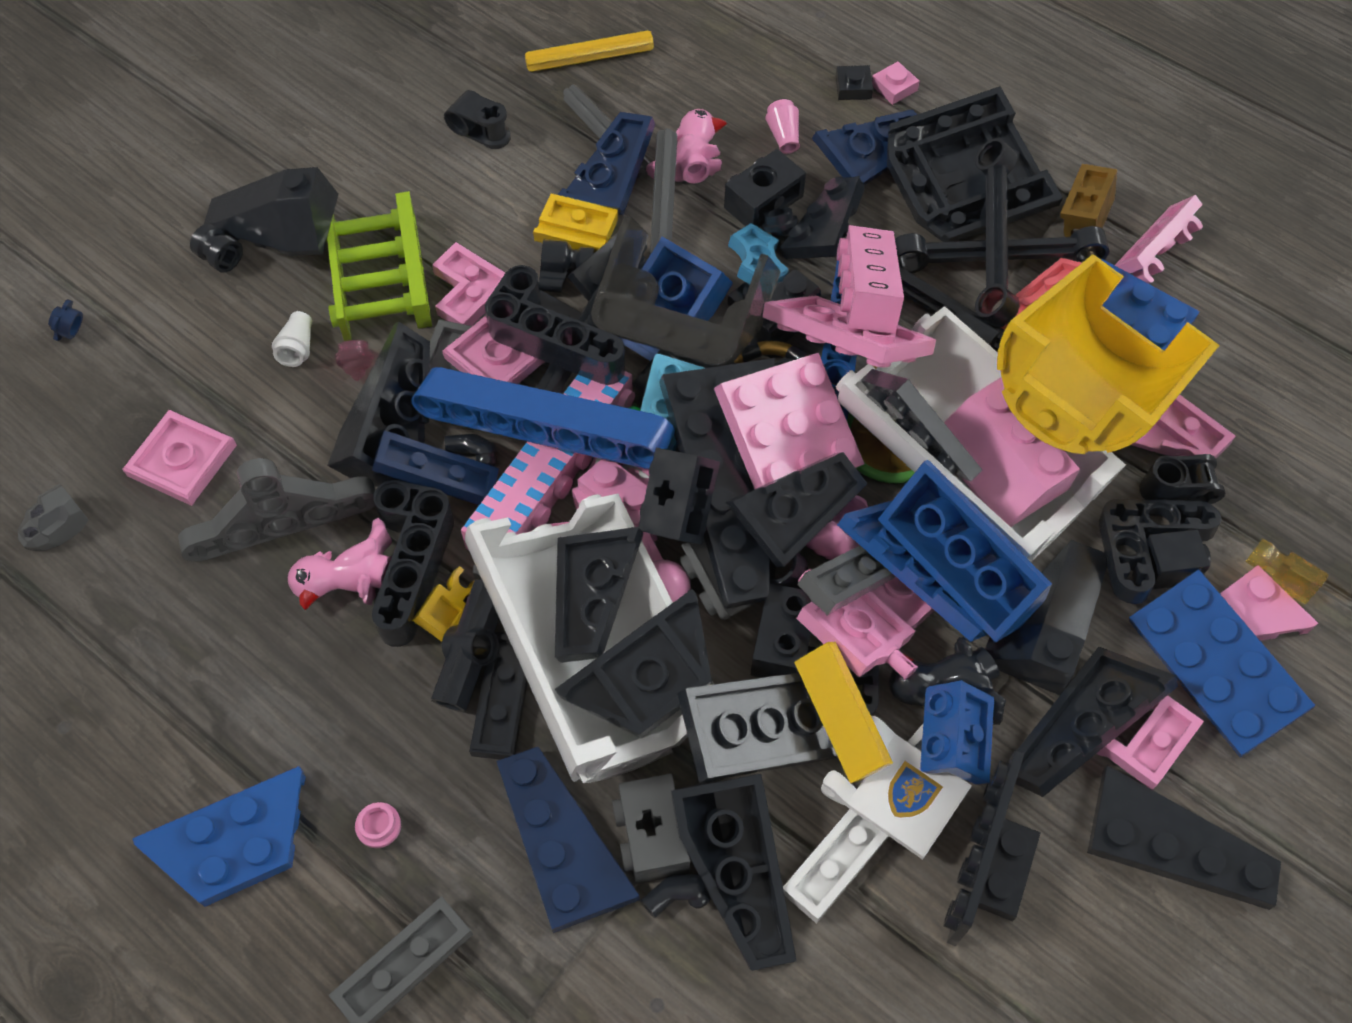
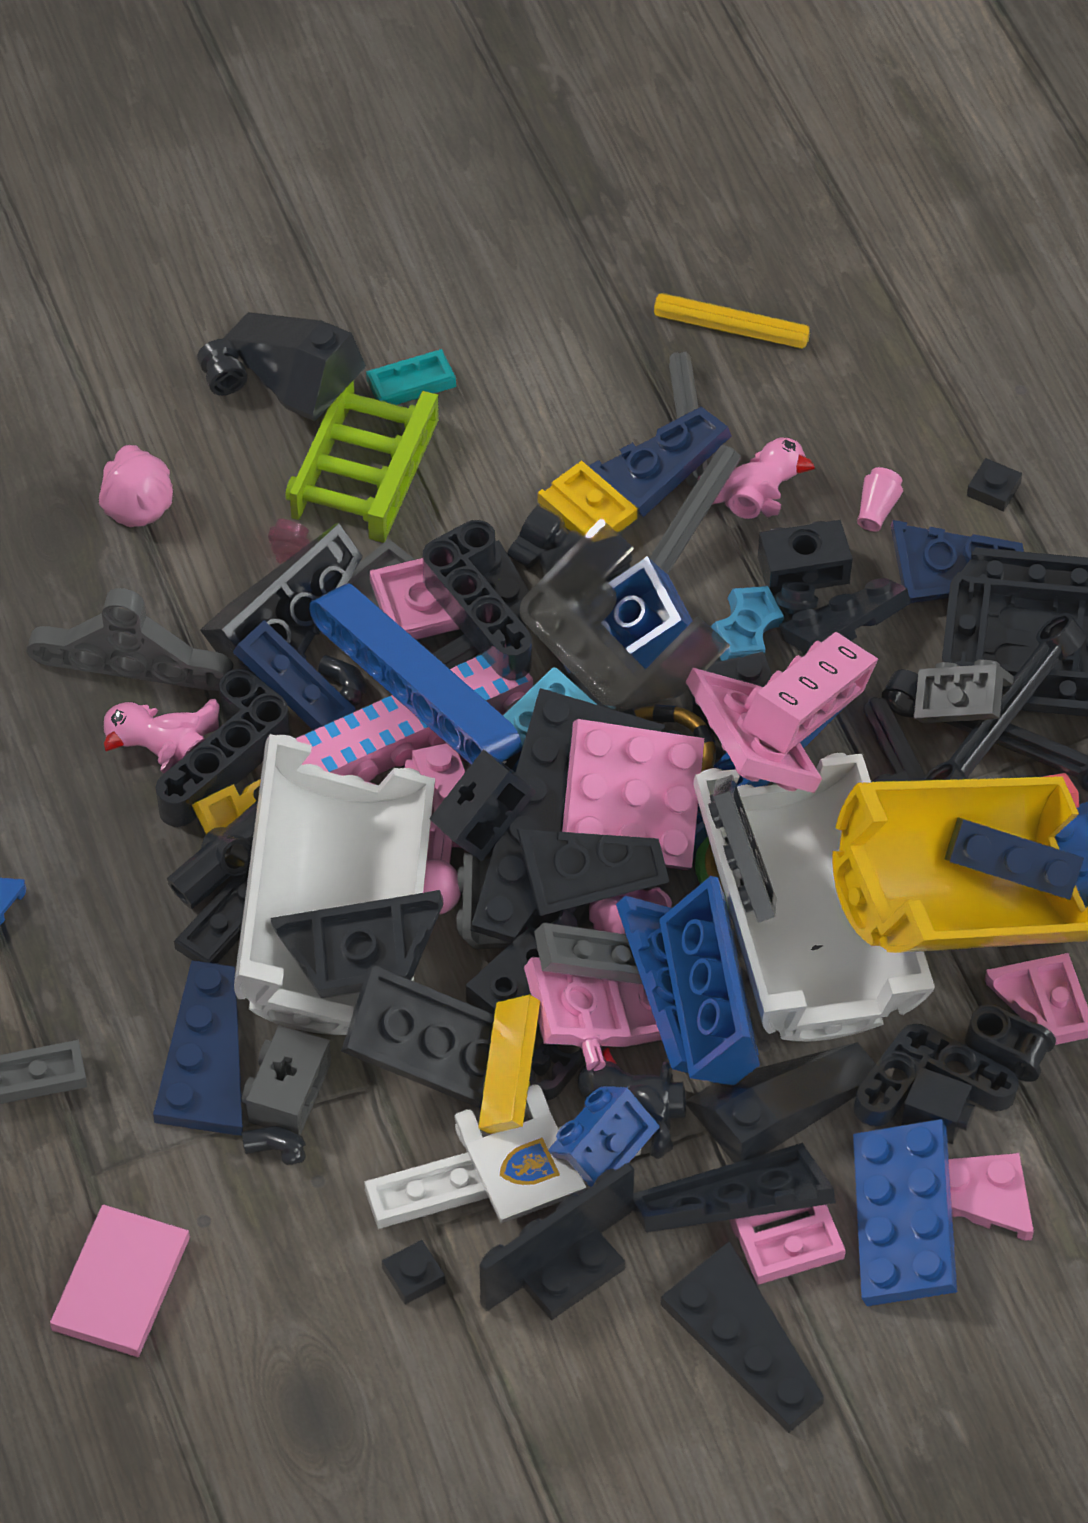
camera: 30 degrees right, 5 degrees down
(65, 321) = (42, 377): dark blue plate -> none
(180, 457) = (75, 559): bright pink tile -> none
(200, 374) = (135, 487): none -> bright pink hair
(293, 342) = (239, 497): white cone -> none
(376, 191) = (408, 378): none -> teal plate
(378, 825) = (61, 960): bright pink plate -> none
(472, 282) = (446, 506): bright pink plate -> none
(479, 120) = (562, 348): black piece -> none
(590, 589) = (356, 848): black wing -> none
(735, 854) = (340, 1134): black wedge -> none
(873, 947) = (413, 1272): none -> black plate
(895, 82) = (1040, 505): bright pink plate -> none
(963, 230) = (960, 692): none -> dark grey bracket
(1016, 466) = (815, 936): bright pink slope -> none
(1102, 333) = (1014, 858): none -> dark blue plate
(1291, 573) = (1043, 1178): clear yellow plate -> none

